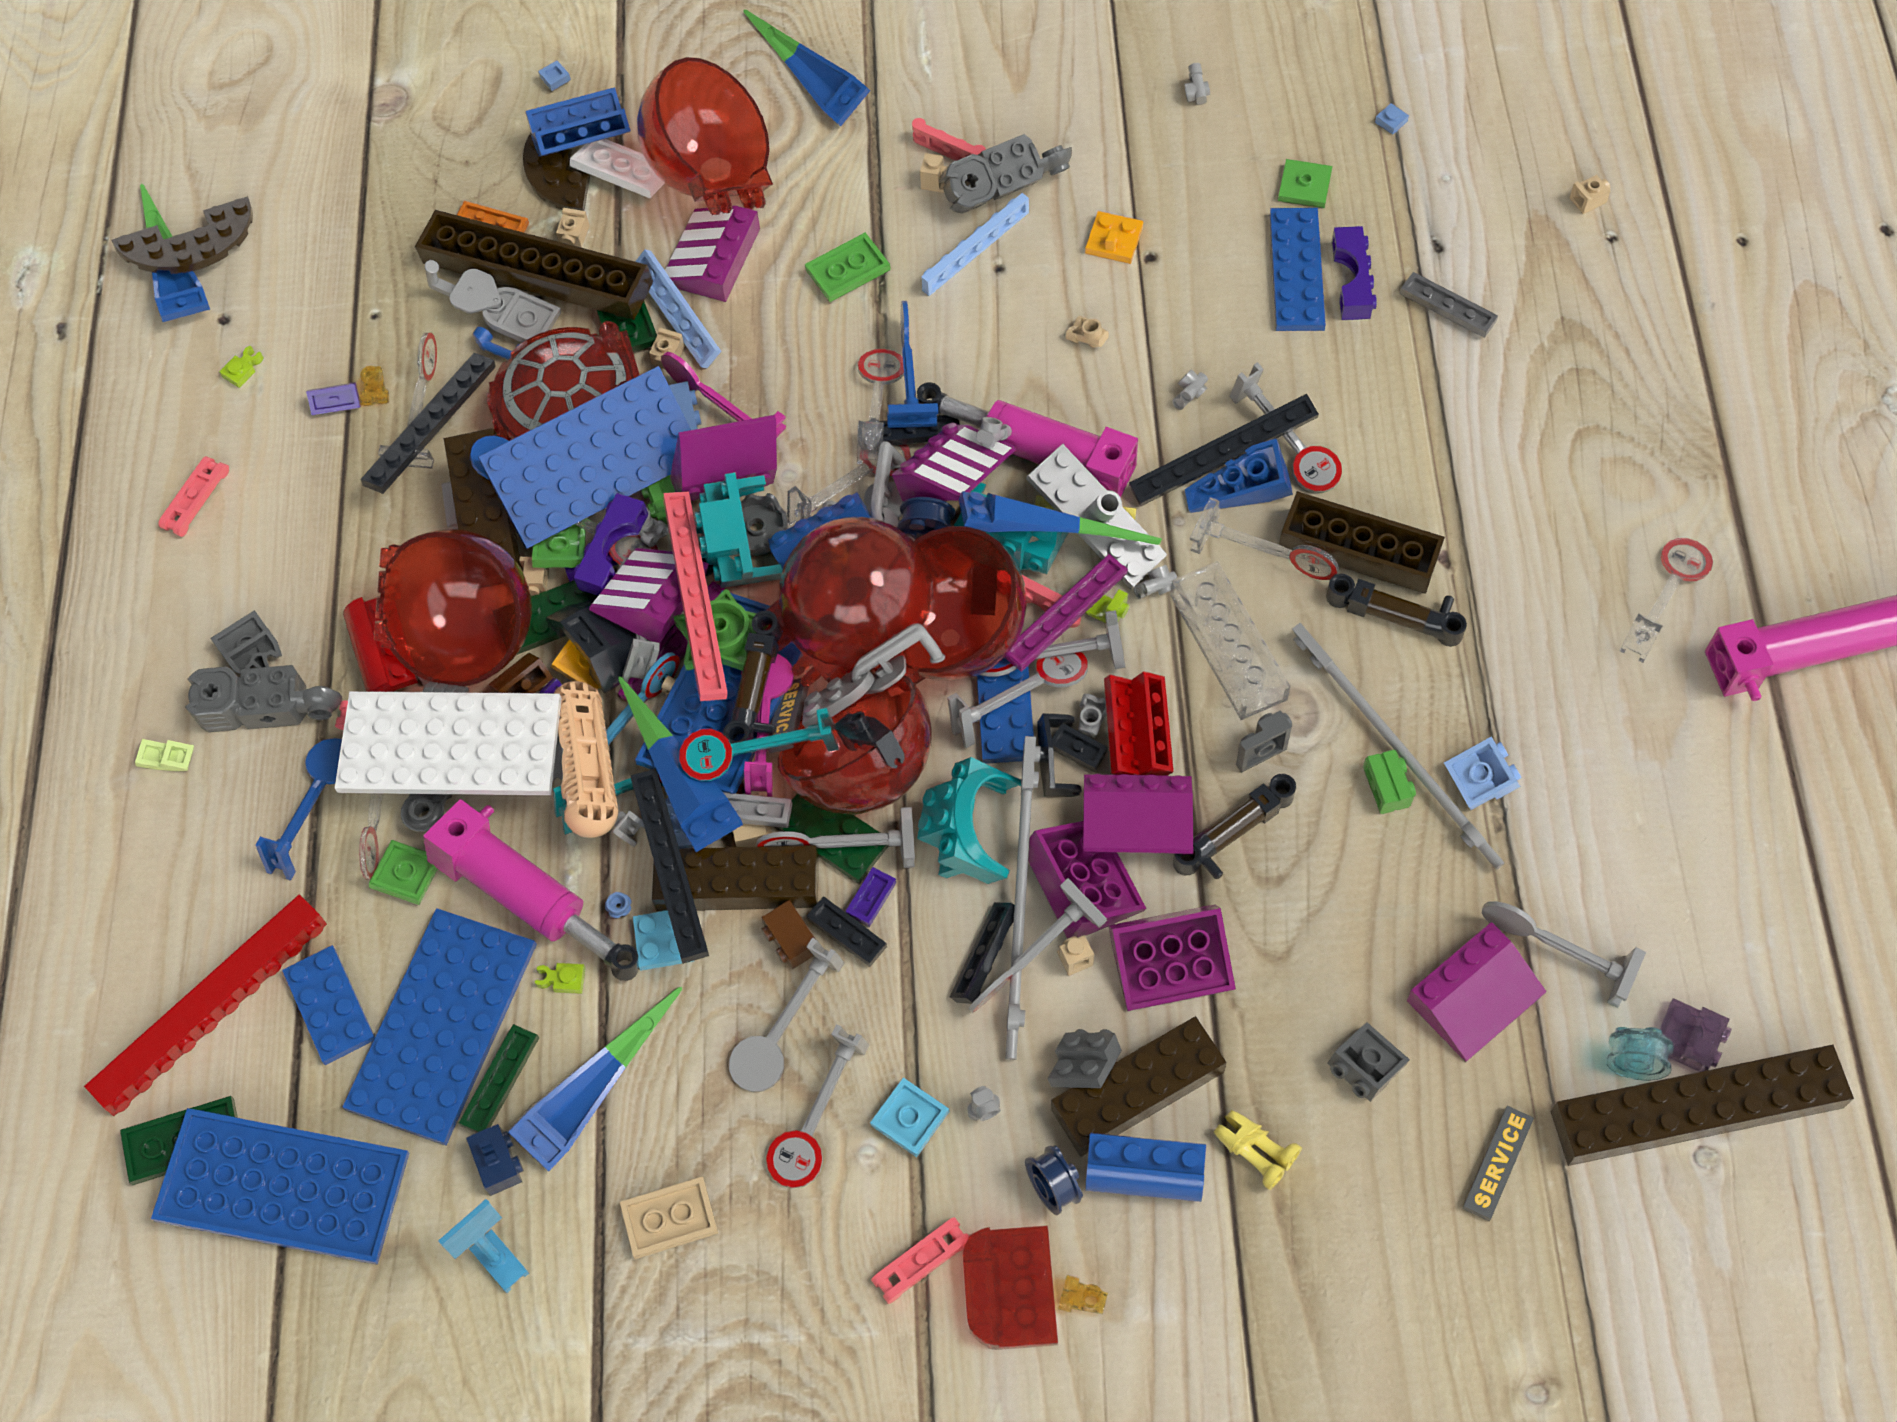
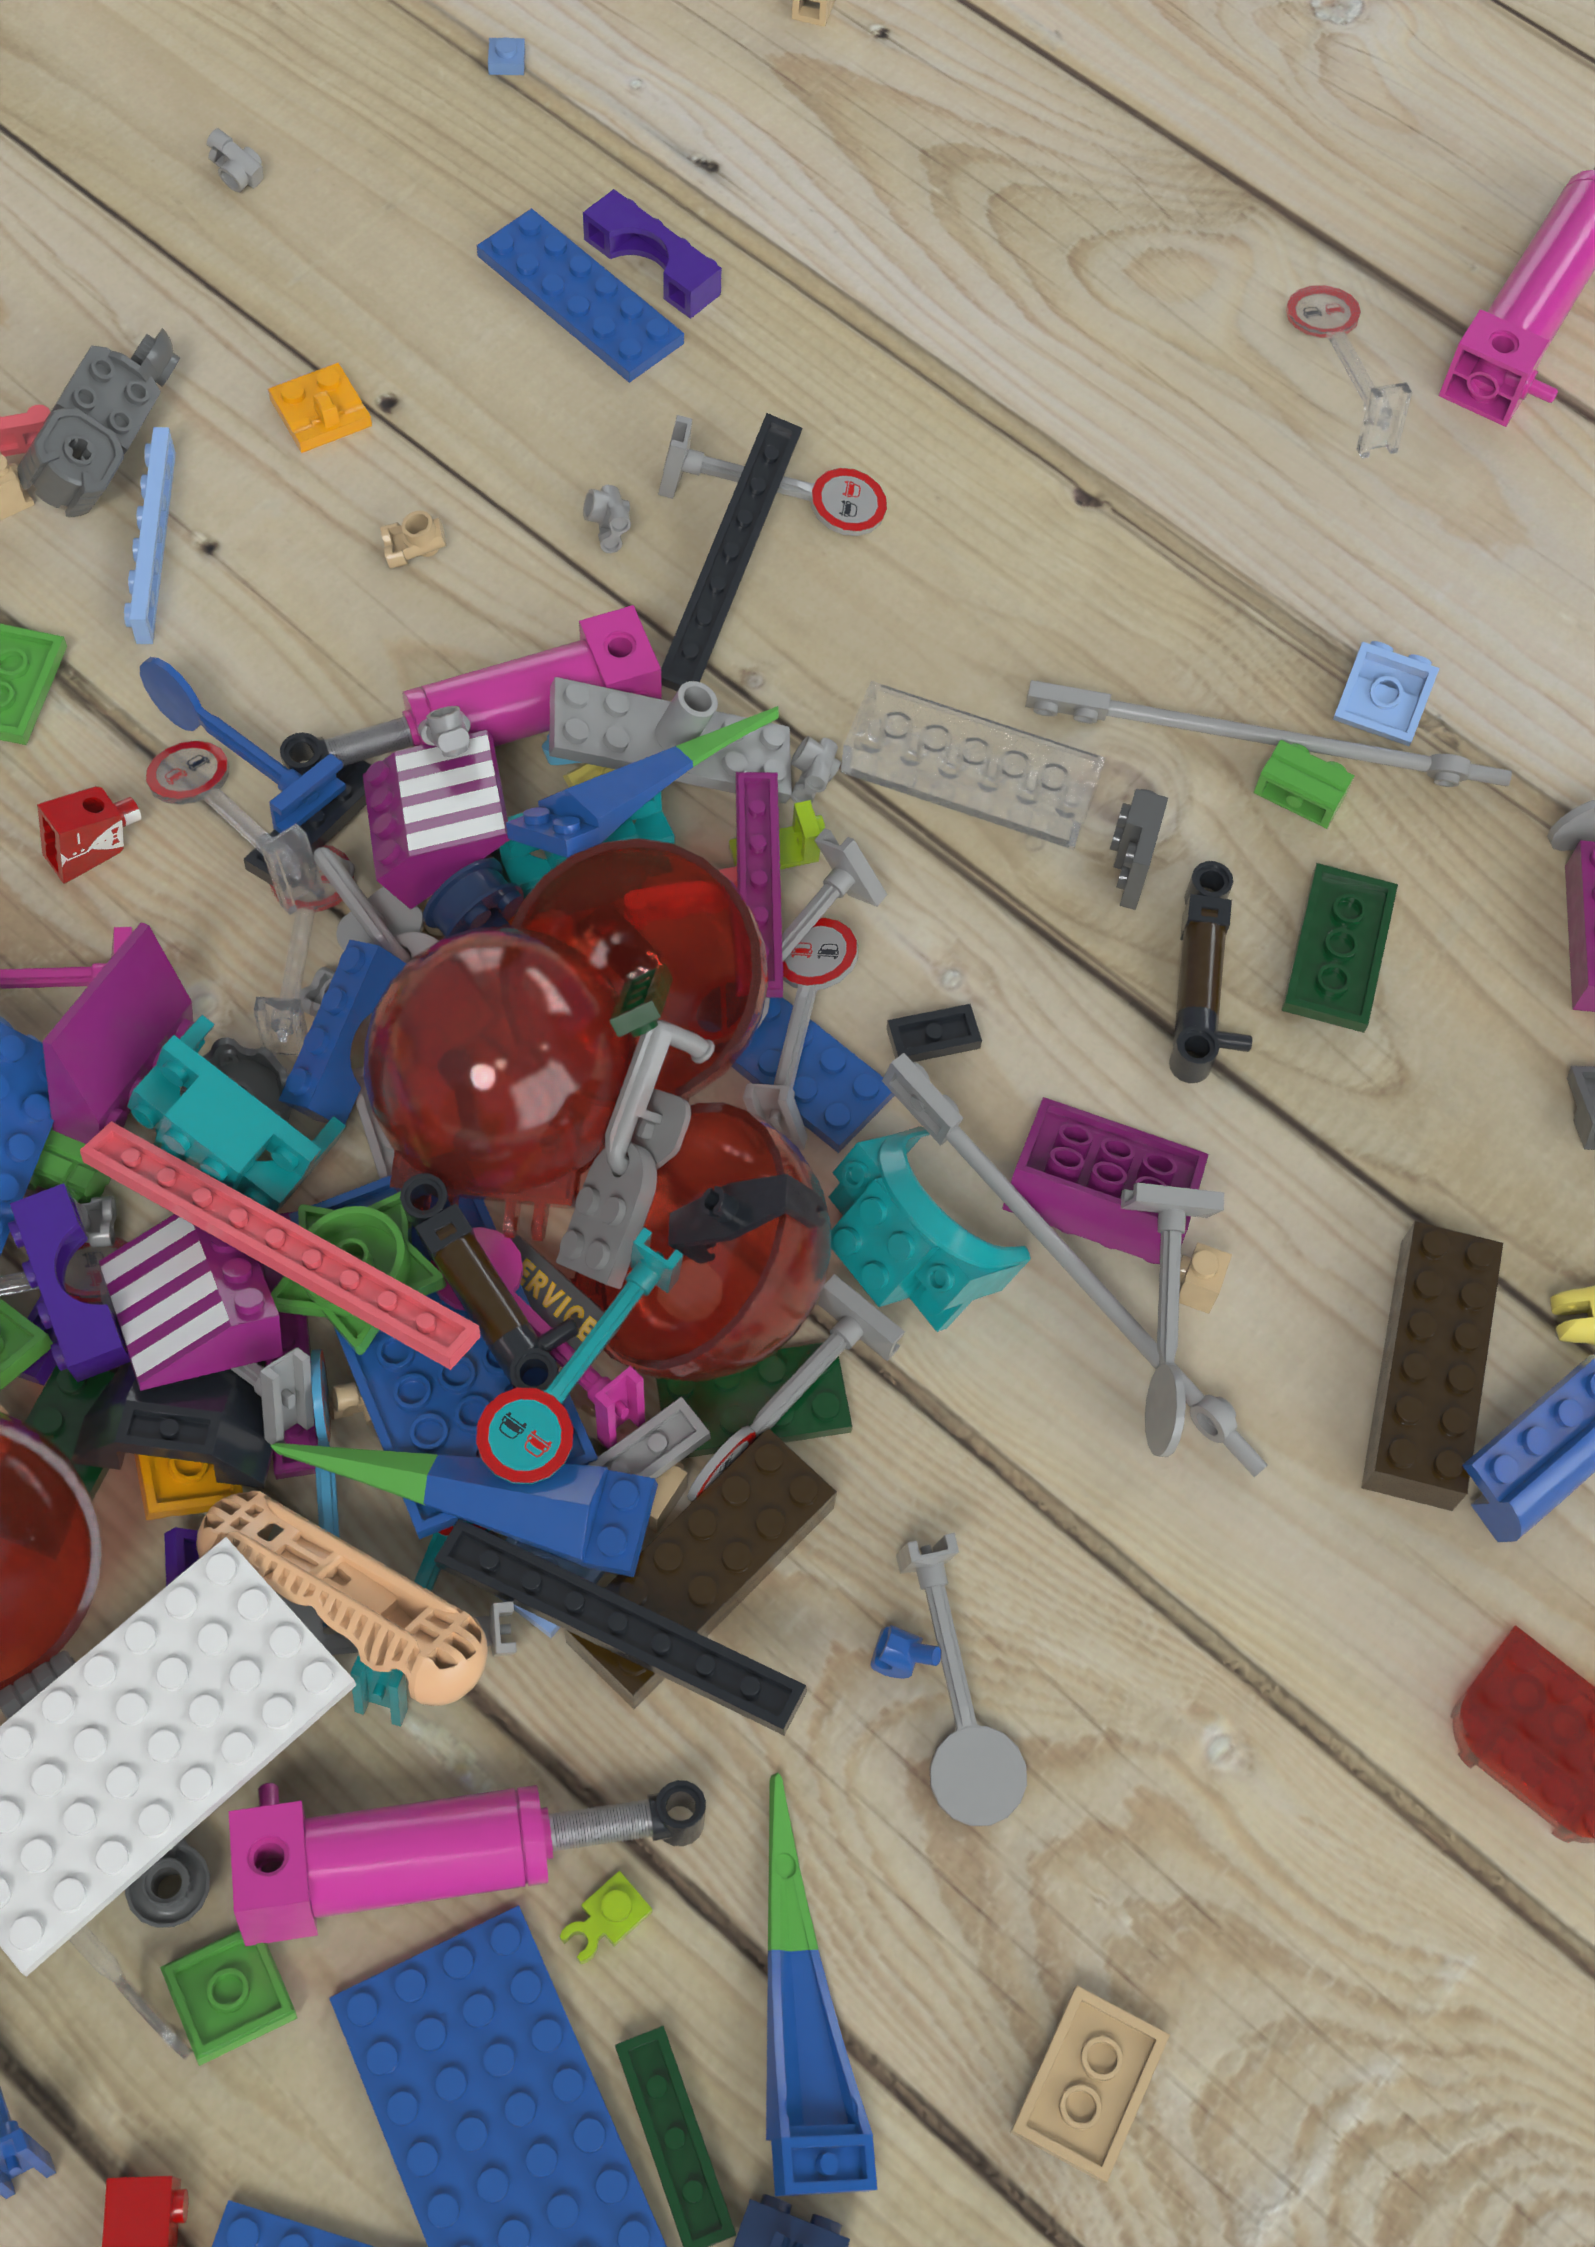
camera: 55 degrees left, 0 degrees up
(524, 676) = (128, 1572): reddish brown brick -> none
(618, 898) = (579, 1735): medium blue plate -> none
(655, 941) = (684, 1736): medium azure plate -> none
(778, 986) = (899, 1652): none -> blue piece
(789, 933) = (846, 1573): reddish brown brick -> none
(795, 1155) = (1151, 1839): light grey piece -> none
(811, 358) = (83, 830): none -> red torso
(846, 931) = (907, 1503): black plate -> none
(871, 896) = (890, 1432): dark purple plate -> none
(909, 1117) = (1229, 1655): medium azure plate -> none
(920, 1260) = (1430, 1815): coral plate -> none
(926, 613) = (641, 1002): none -> plate
(983, 953) = (1096, 1374): black plate -> none
(983, 1104) = (1301, 1551): light grey plate -> none
(1046, 760) = (882, 1049): black piece -> none
(1054, 1179) = (1477, 1562): dark blue wheel -> none
(1084, 1059) = (1356, 1388): dark grey plate -> none
(1092, 711) = (909, 980): light grey plate -> none
(1138, 725) = (984, 948): red brick -> none
(1138, 814) = (1096, 1049): magenta slope -> none
(1172, 957) = (1302, 1180): magenta slope -> none
(1248, 480) = (791, 566): blue wedge -> none
(1305, 183) = (484, 192): bright green plate -> none
(1305, 558) = (958, 608): clear piece -> none
(1317, 871) = (1340, 948): none -> dark green plate
(1363, 541) = (992, 541): dark brown brick -> none
(1368, 600) = (1060, 602): black piece -> none
(1448, 304) = (794, 216): flat silver plate -> none

